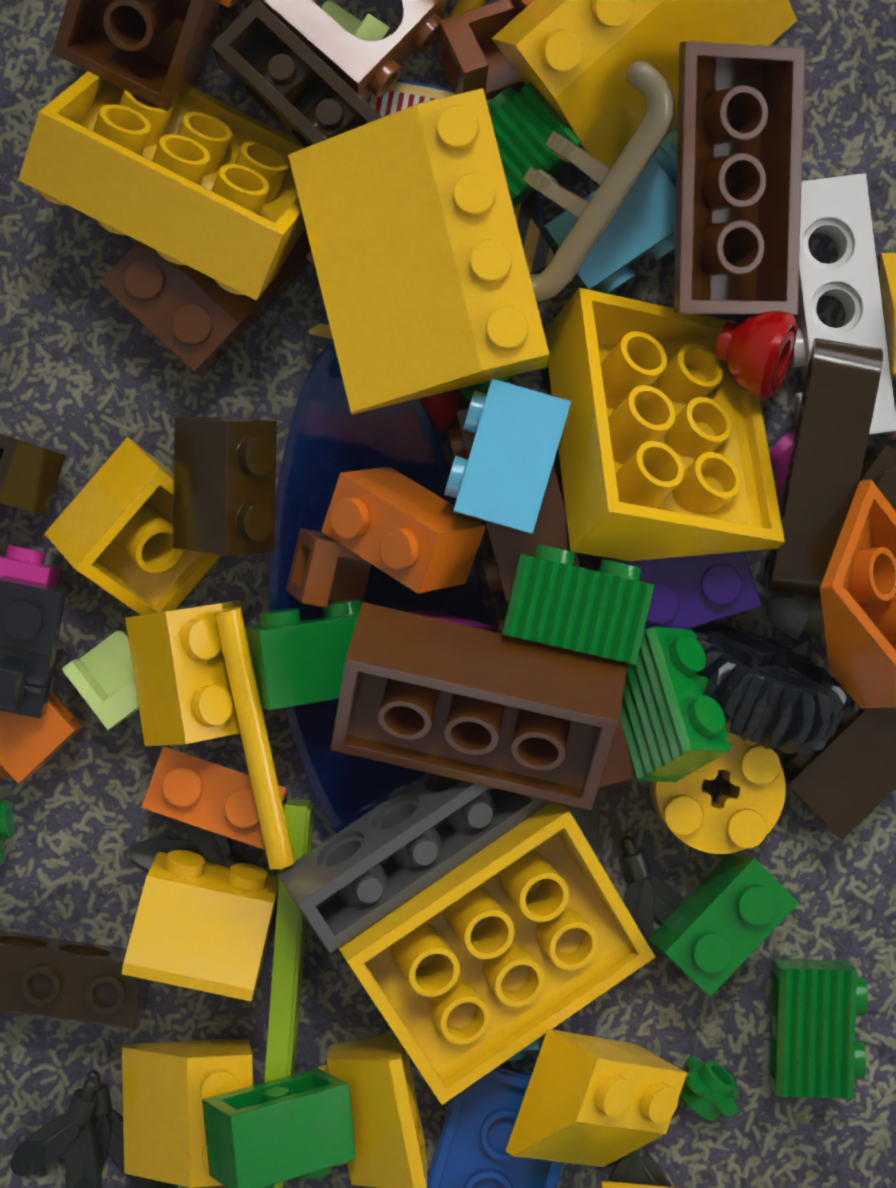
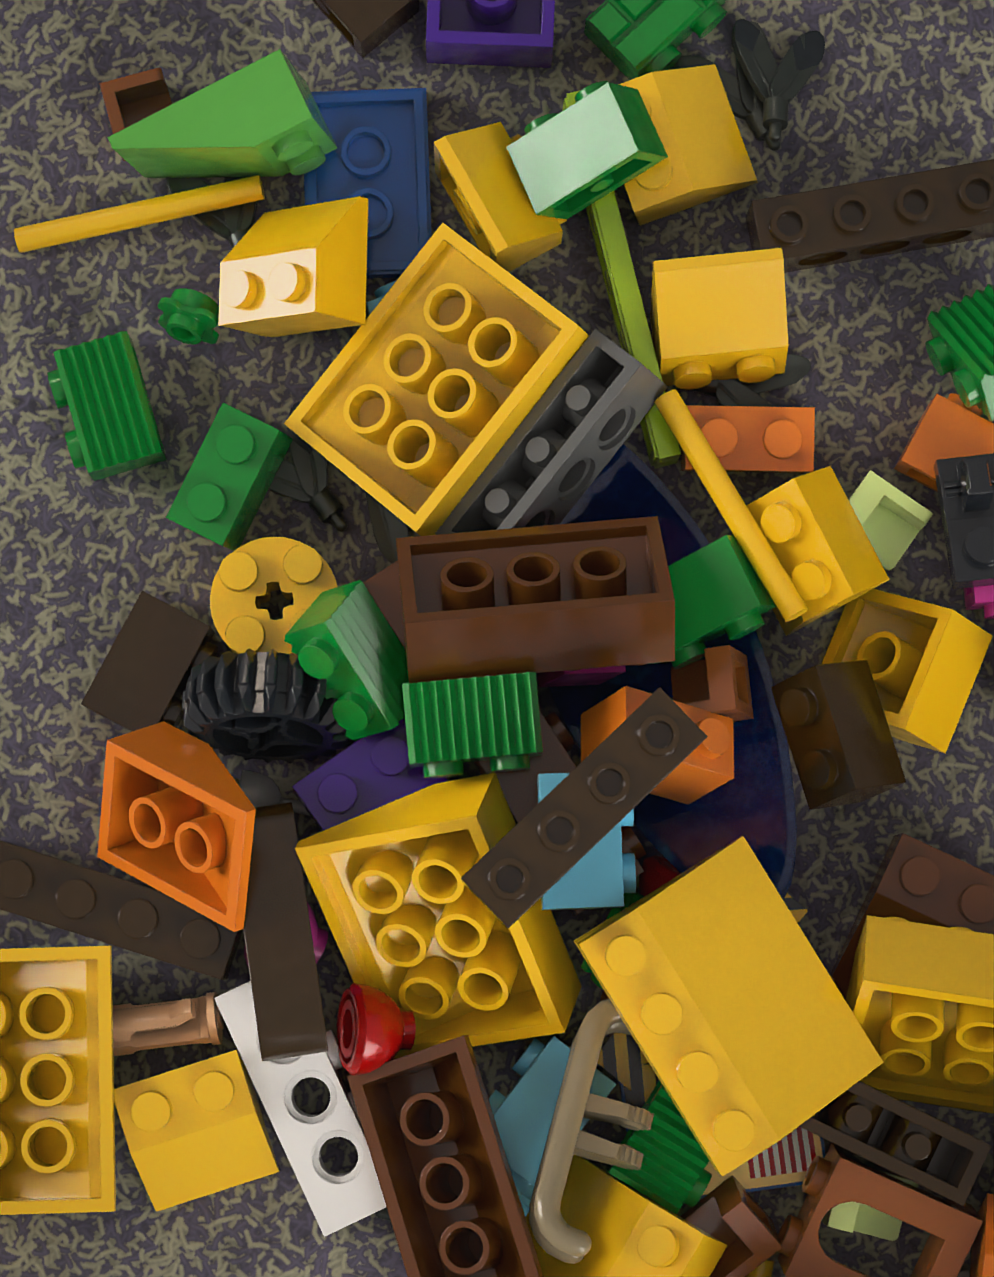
camera: 160 degrees right, 5 degrees down
(505, 480) = (583, 808): none -> dark brown brick

